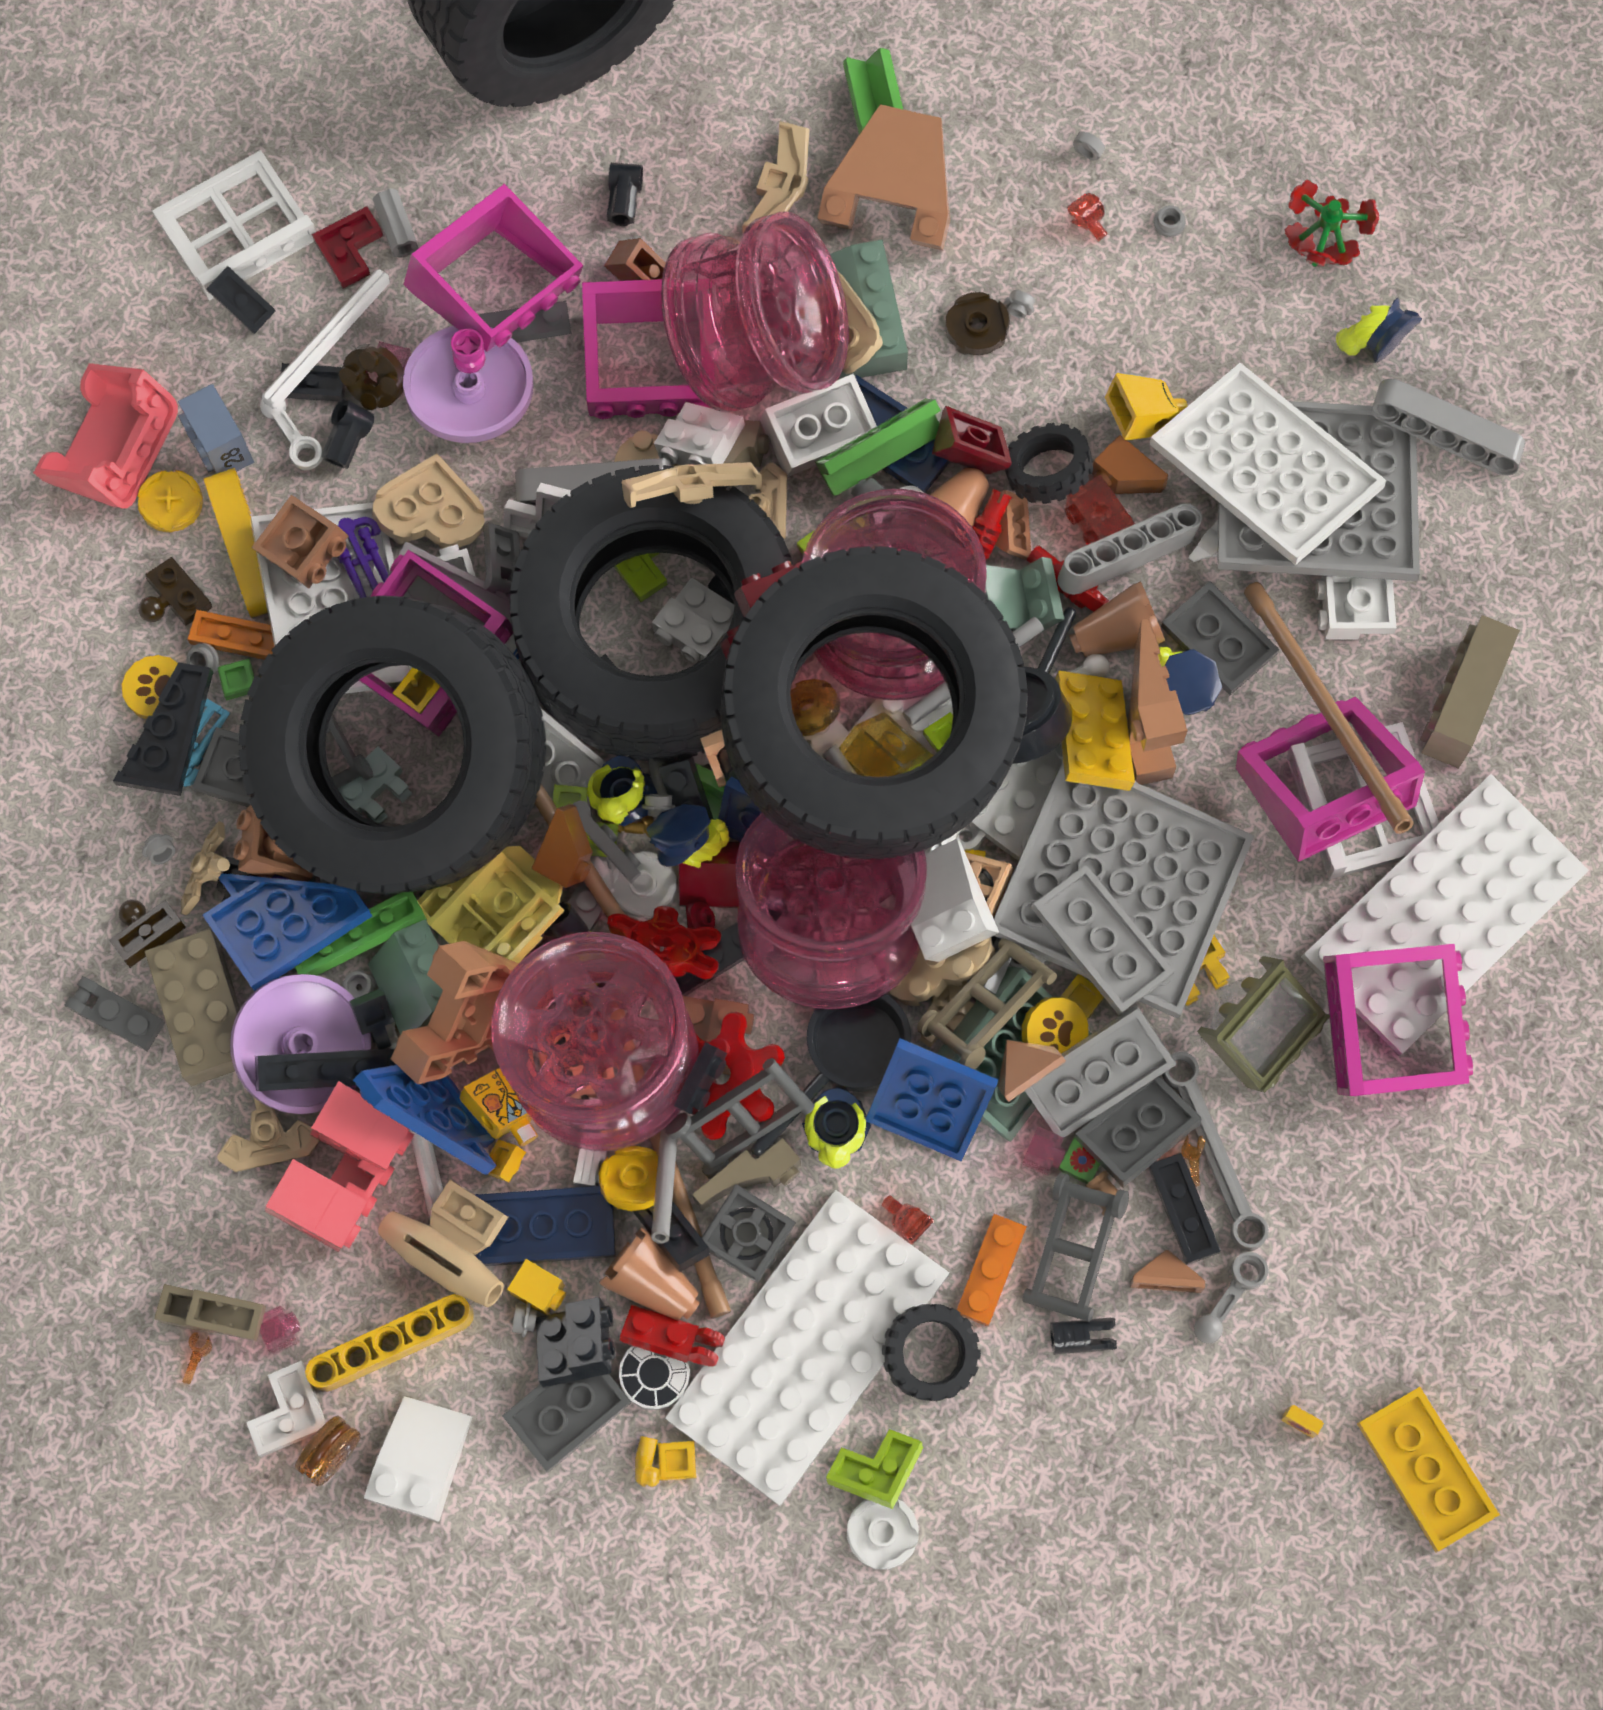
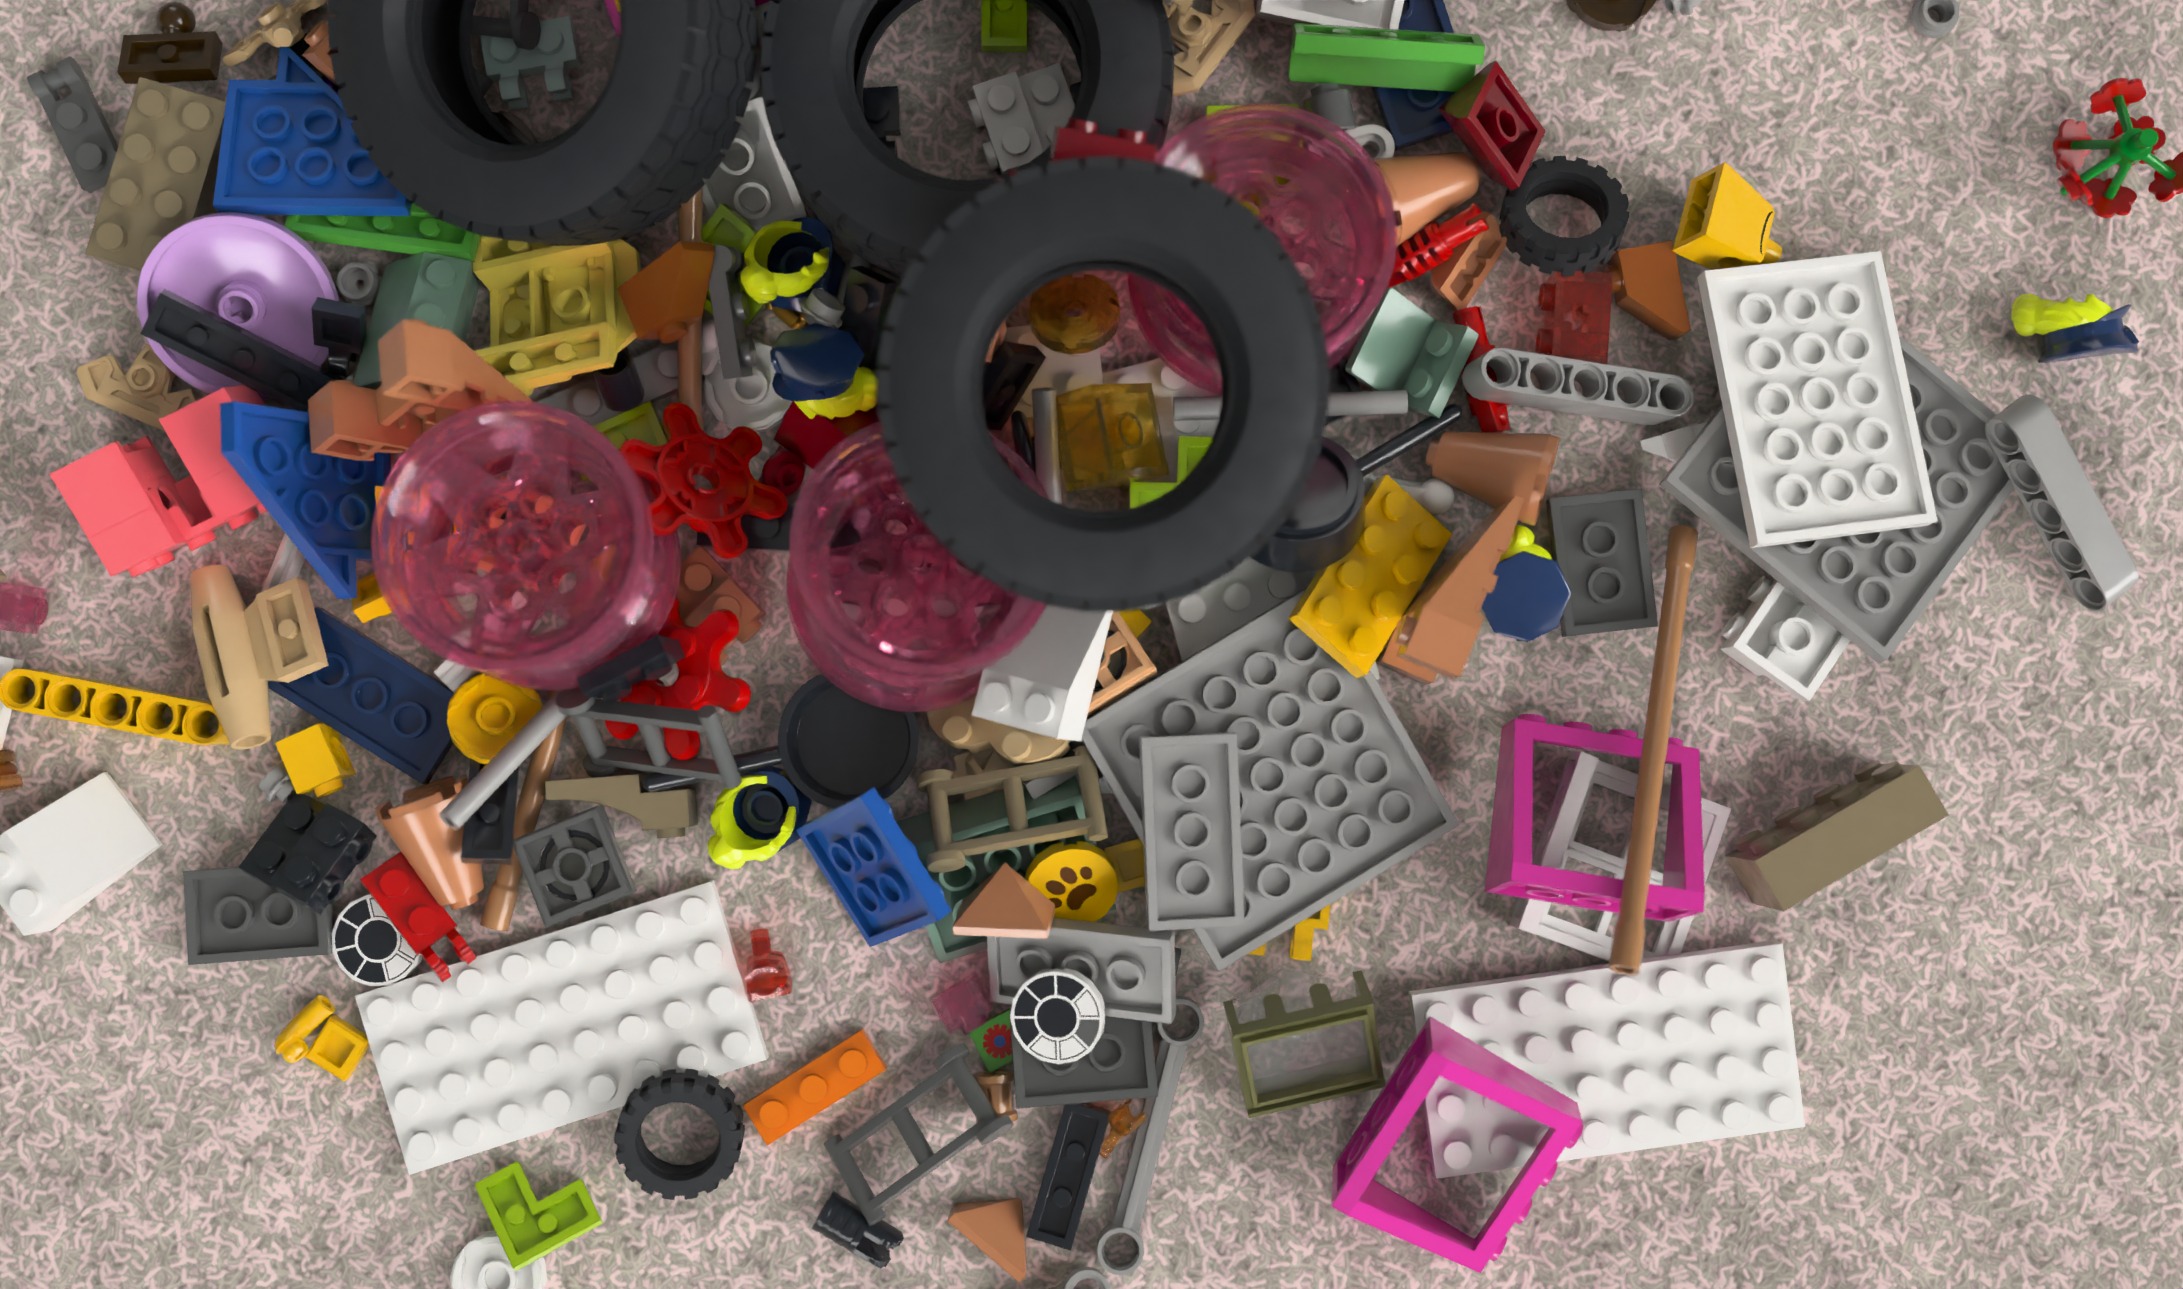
camera: 30 degrees right, 15 degrees up
(1106, 1108) = (1058, 1015): none -> tile

